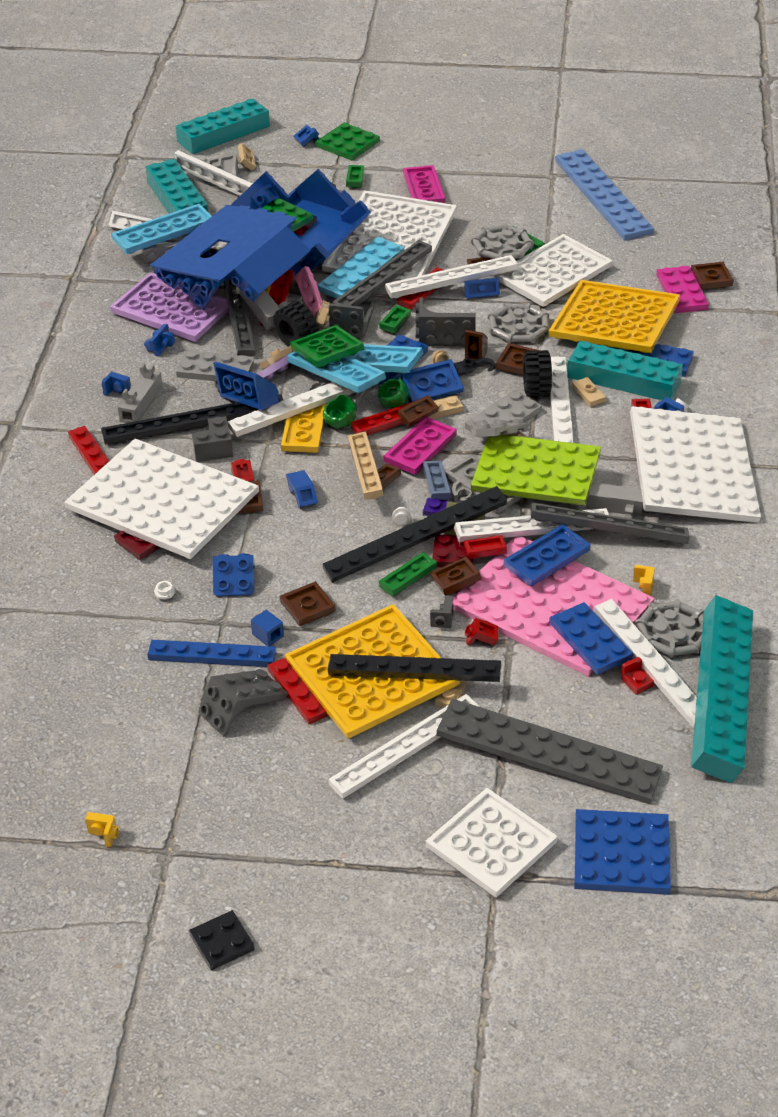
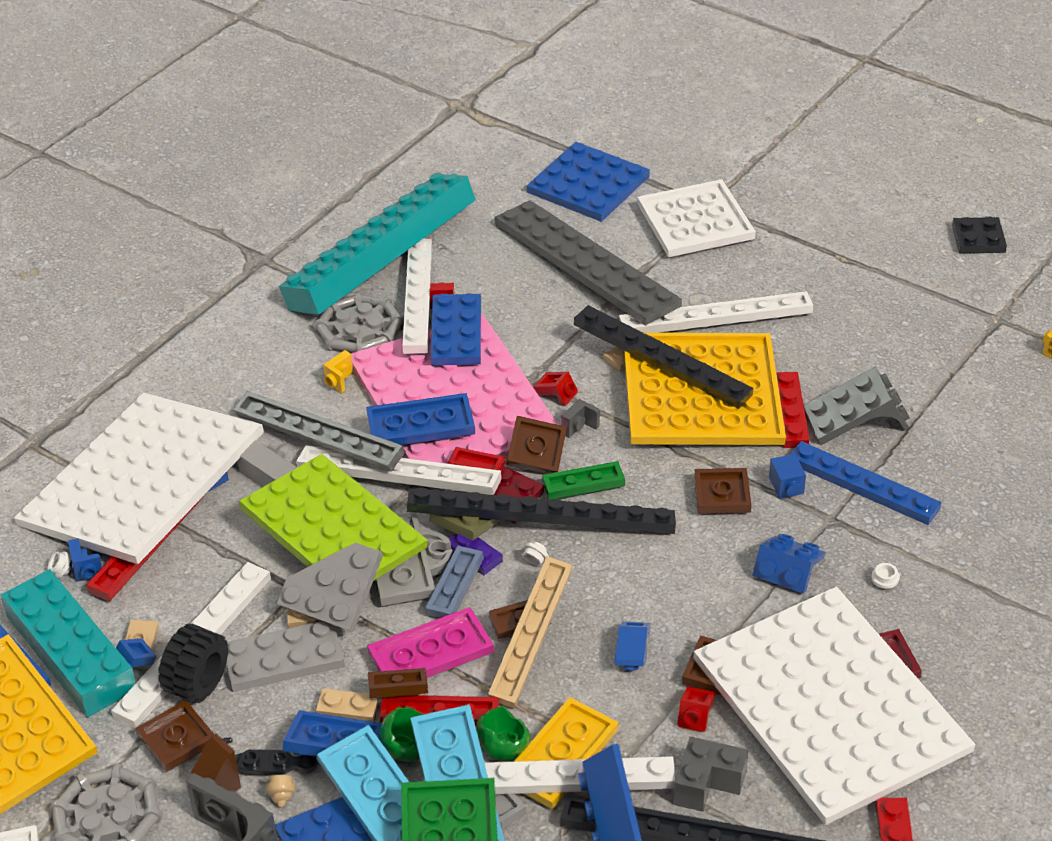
camera: 150 degrees left, 0 degrees up
(577, 373) = (136, 652): none -> blue plate

